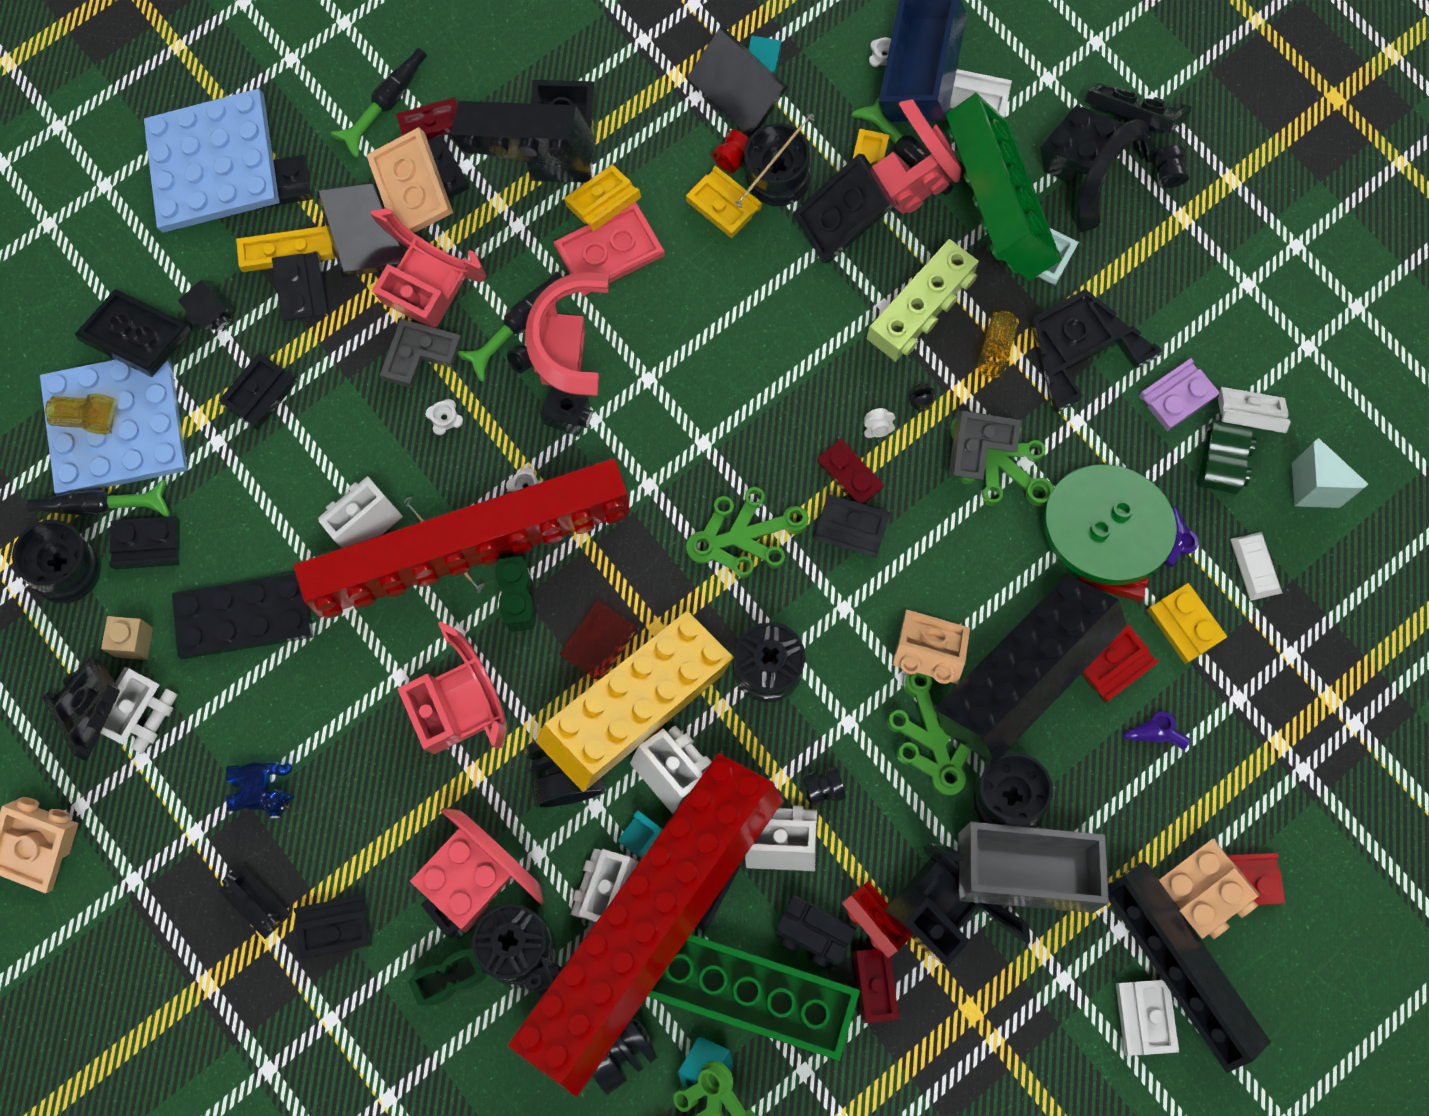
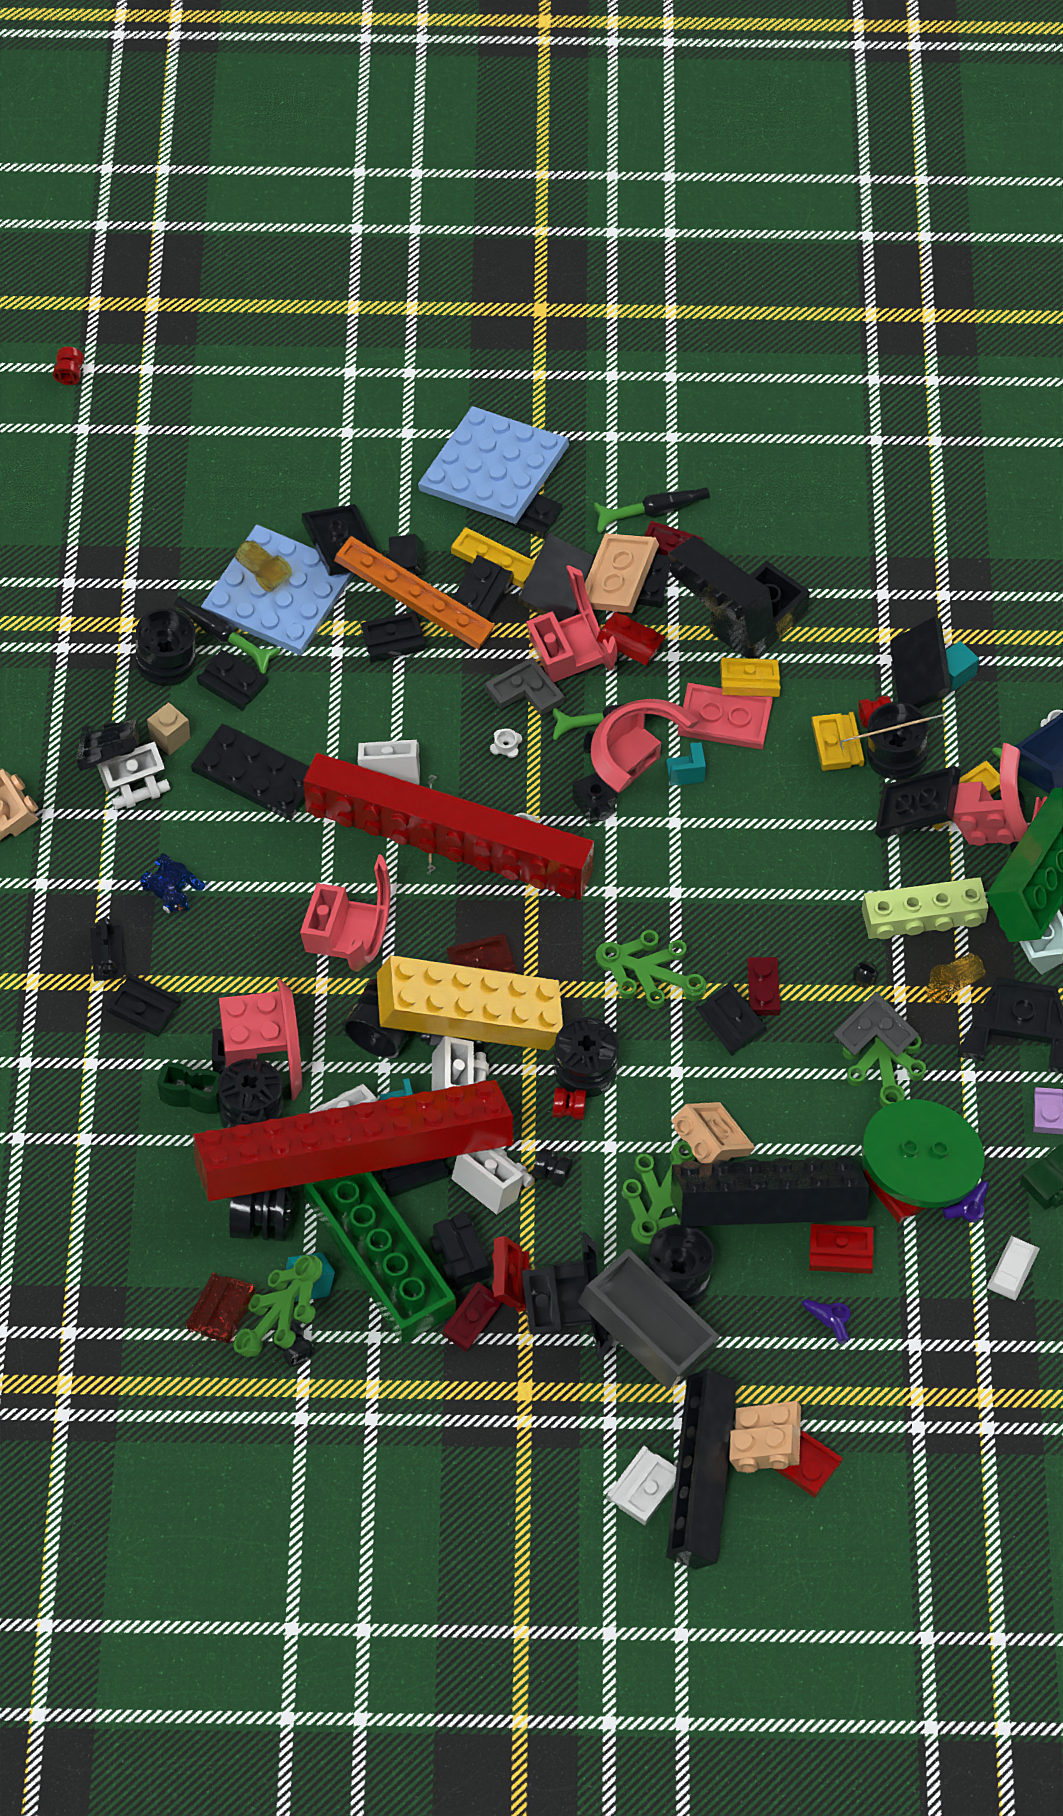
camera: 40 degrees right, 15 degrees down
(243, 336) = (414, 592): none -> orange plate
(476, 233) = (631, 638): none -> red plate
(516, 588) = (451, 889): dark green brick -> none
(619, 320) = (689, 768): none -> teal panel
(792, 711) = (576, 1103): none -> red wheel
(878, 423) = (813, 966): white plate -> none
(1187, 623) = (921, 1265): yellow plate -> none

